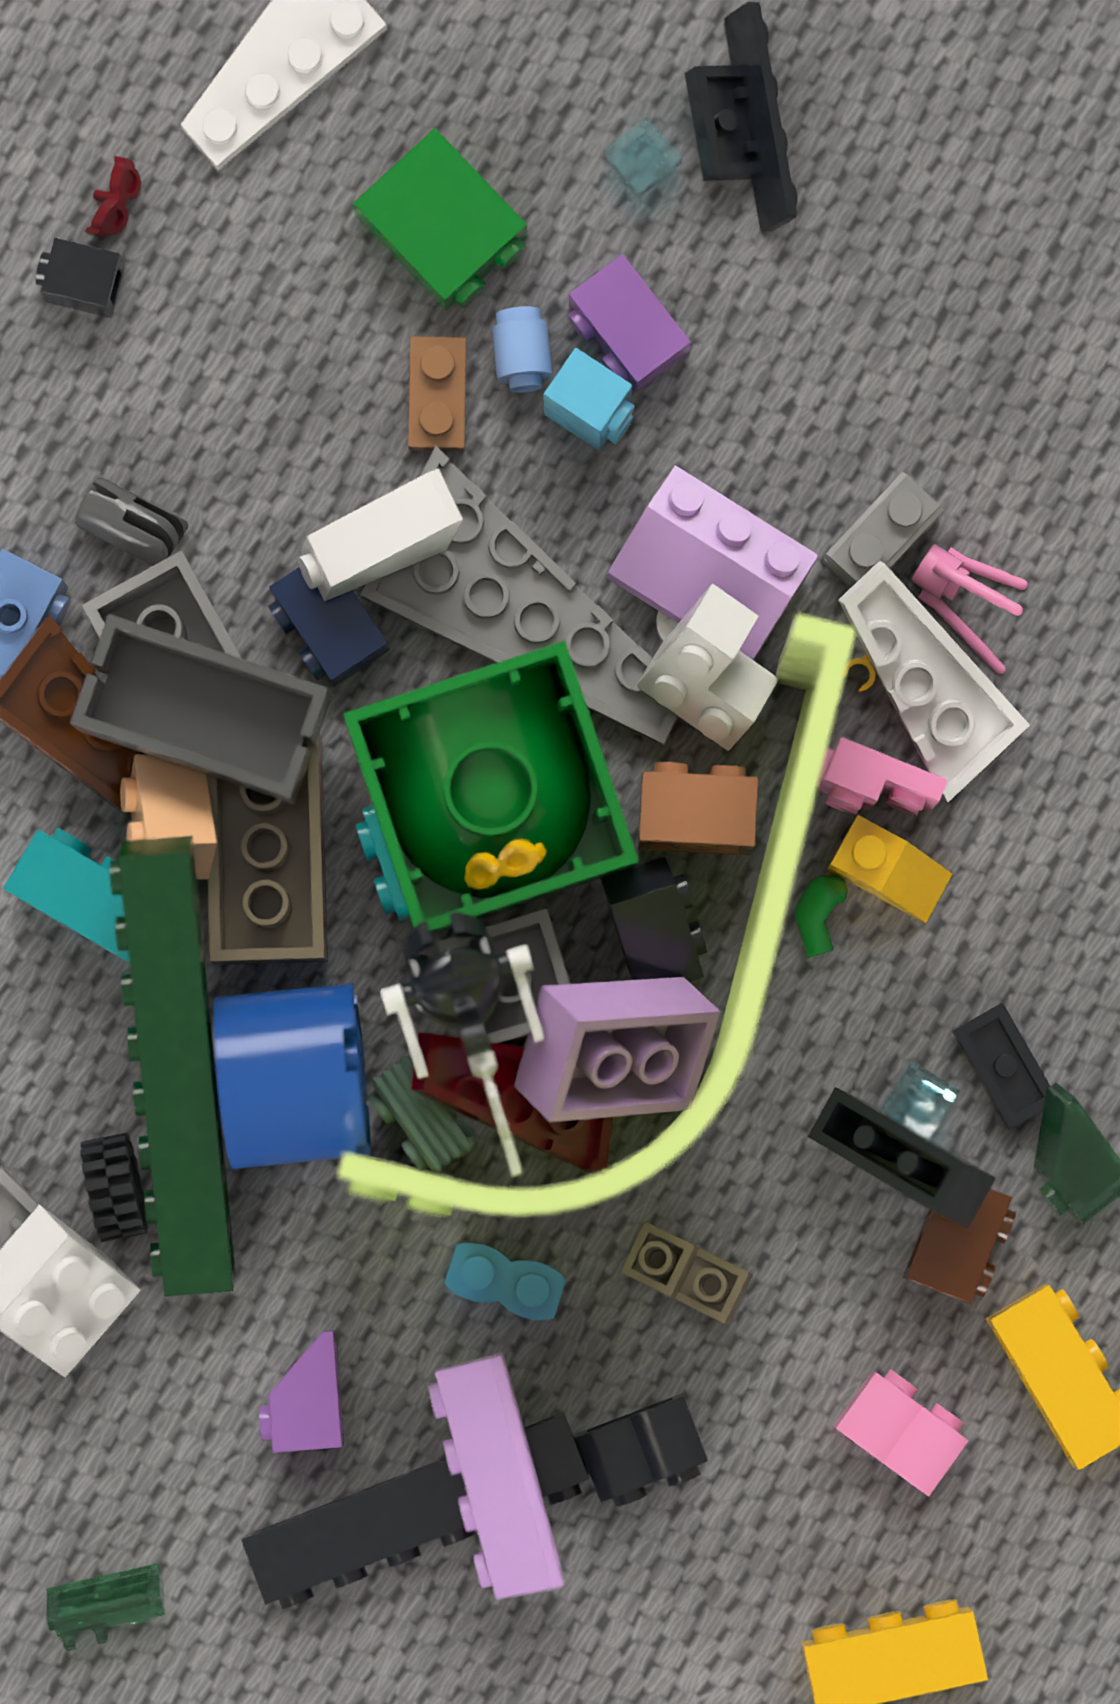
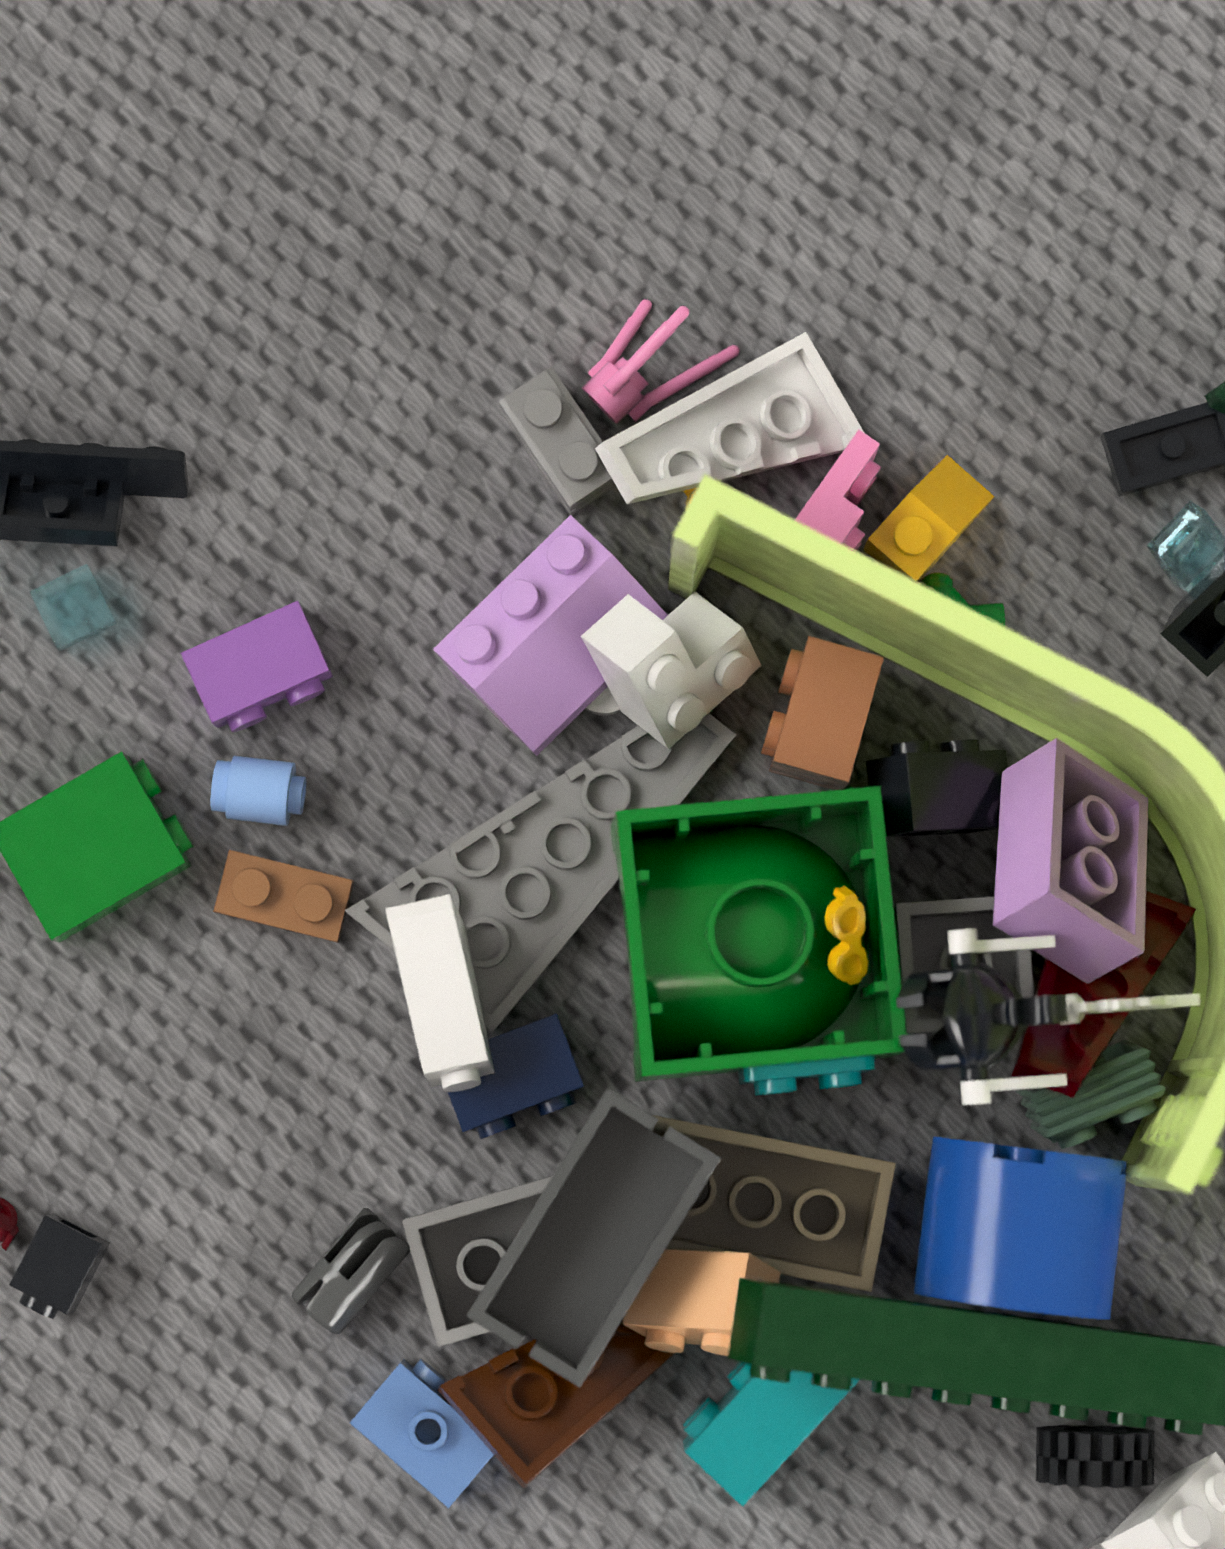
camera: 75 degrees left, 0 degrees up
(589, 401) = (338, 725): medium azure brick -> none

